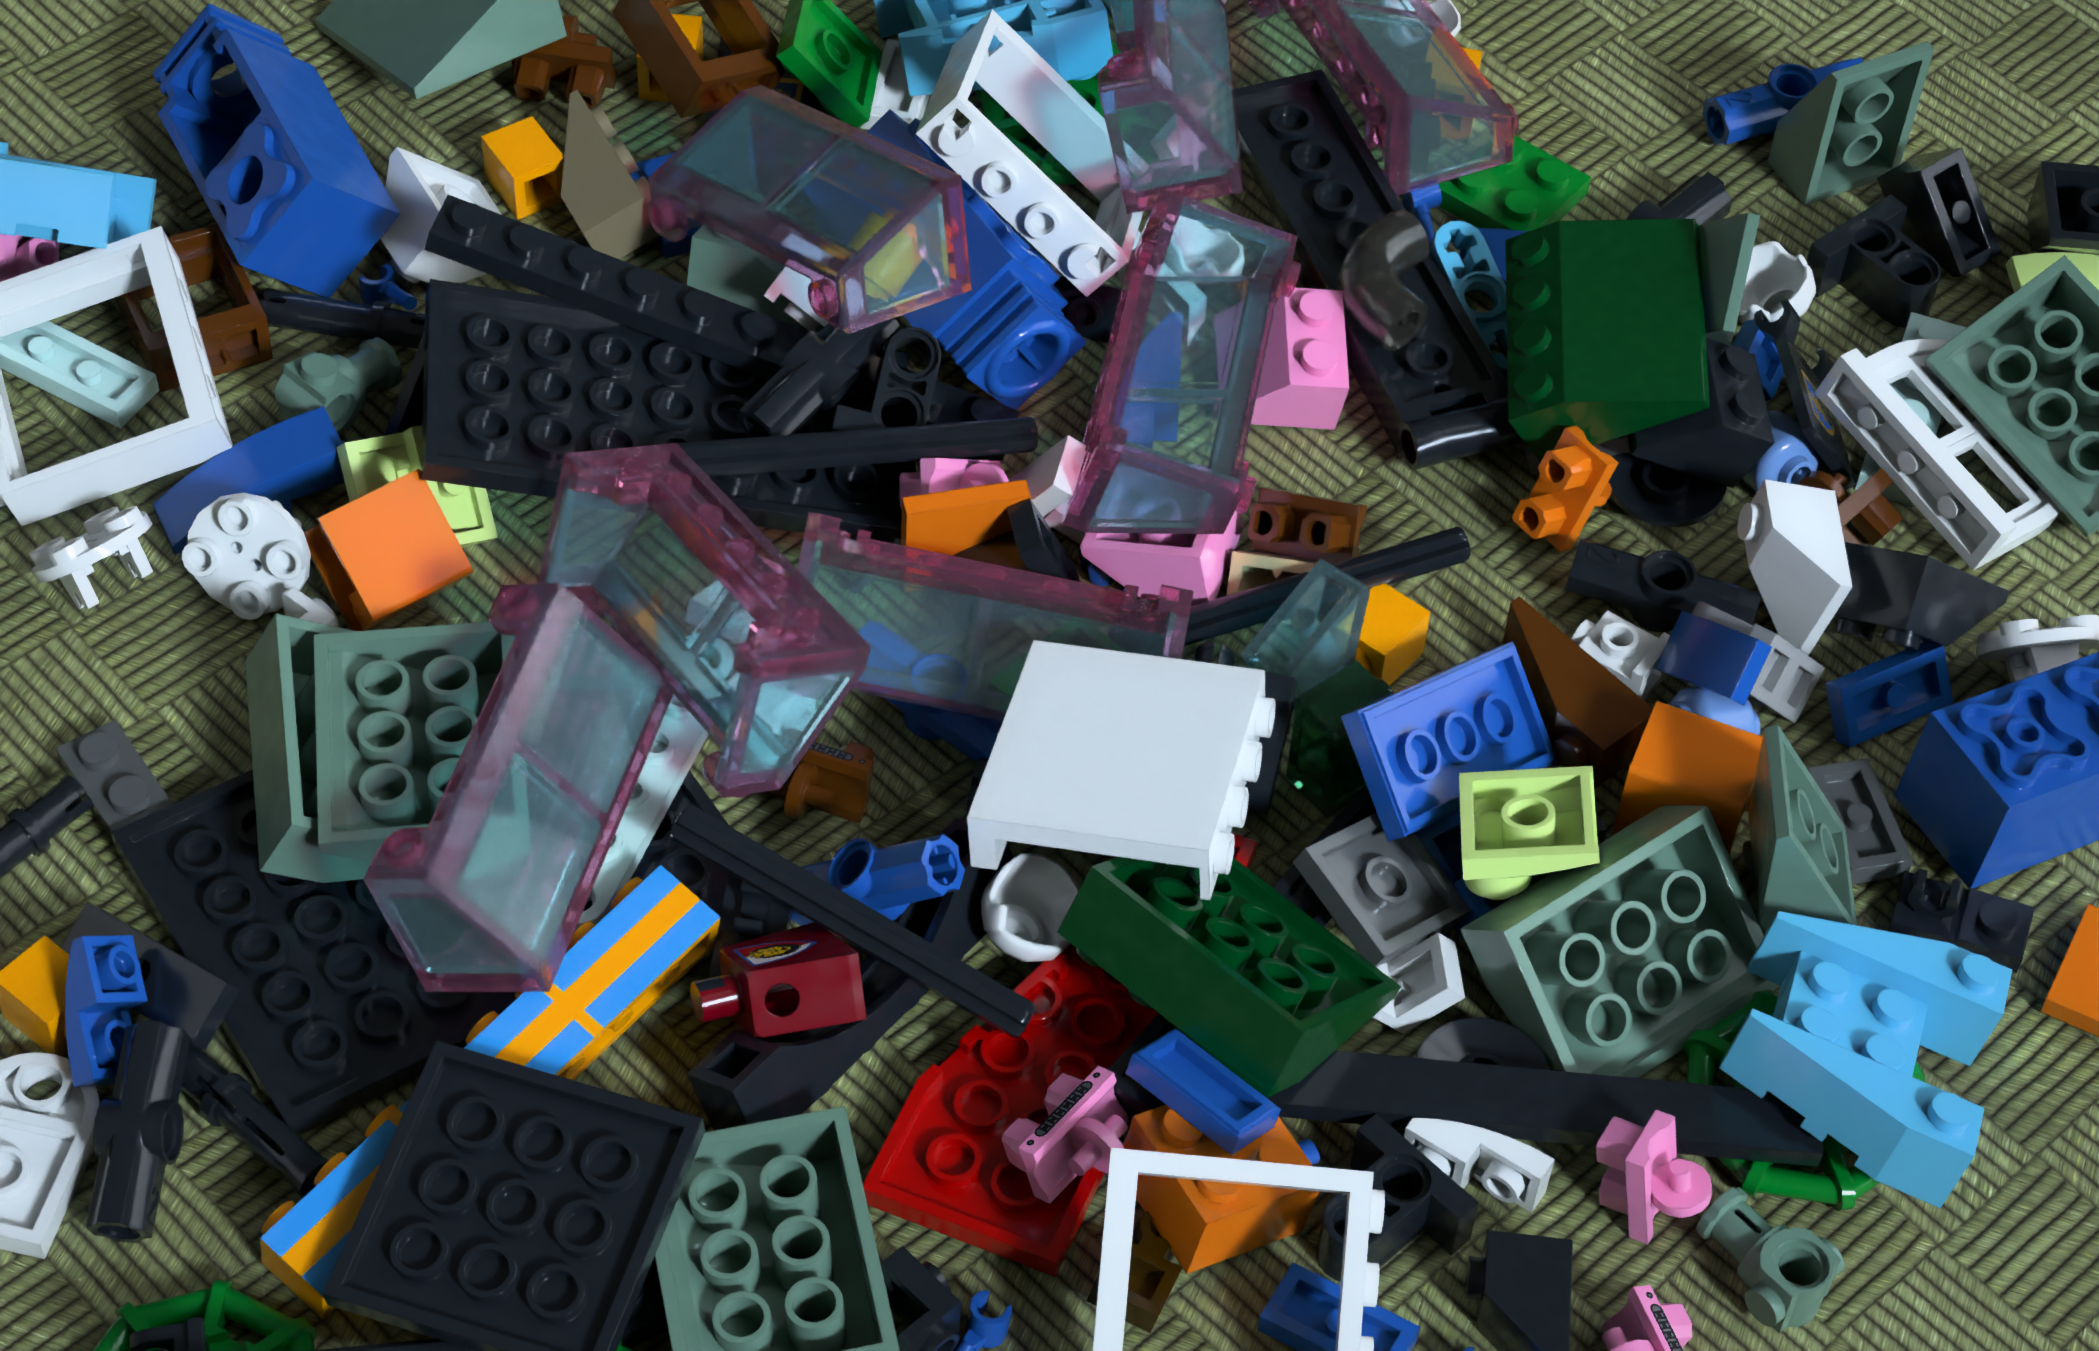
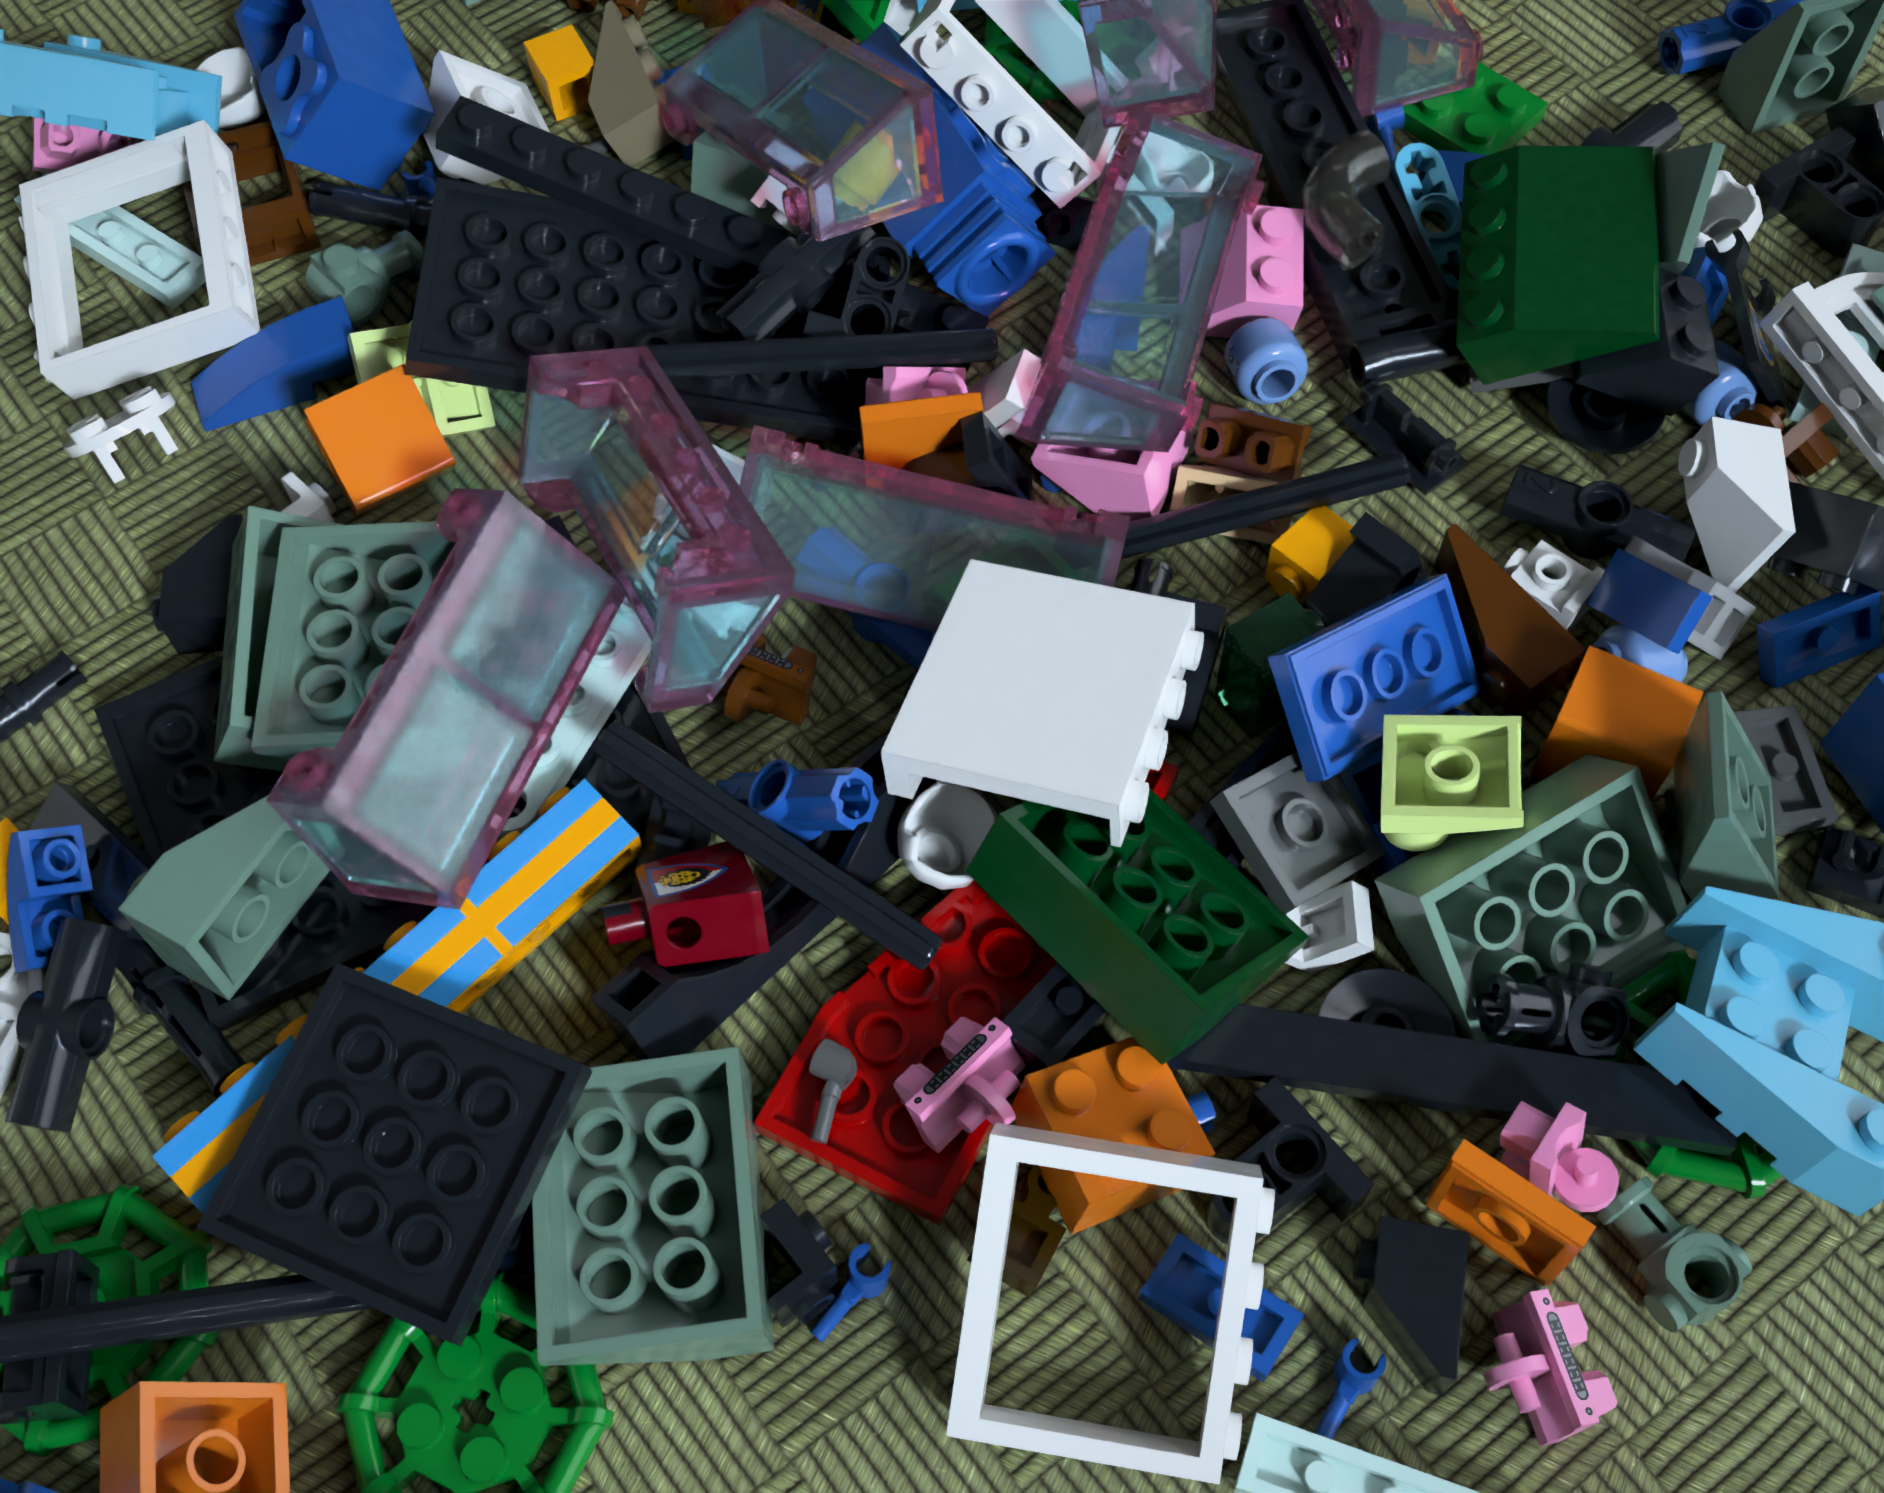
camera: 10 degrees right, 10 degrees up
(112, 777) = (111, 650): dark grey plate -> none
(175, 189) = (240, 92): none -> white hair
(211, 715) = (196, 592): none -> black slope
(247, 553) = (256, 435): white plate -> none
(305, 990) = (224, 896): none -> sand green slope
(940, 1127) = (838, 1068): none -> dark grey hand
(1203, 1091) = (1097, 1054): blue tile -> none
(1313, 629) = (1248, 555): clear light blue slope -> none
(1314, 446) = (1266, 361): none -> medium blue head
(1434, 641) = (1366, 573): none -> black tile
(1444, 503) = (1390, 428): none -> black hinge
(1502, 1164) = (1402, 1135): white slope -> none
(1567, 490) = (1508, 414): orange hips -> none
(1610, 1218) = (1508, 1214): none -> orange tile
(1644, 1040) = (1554, 1009): none -> black connector

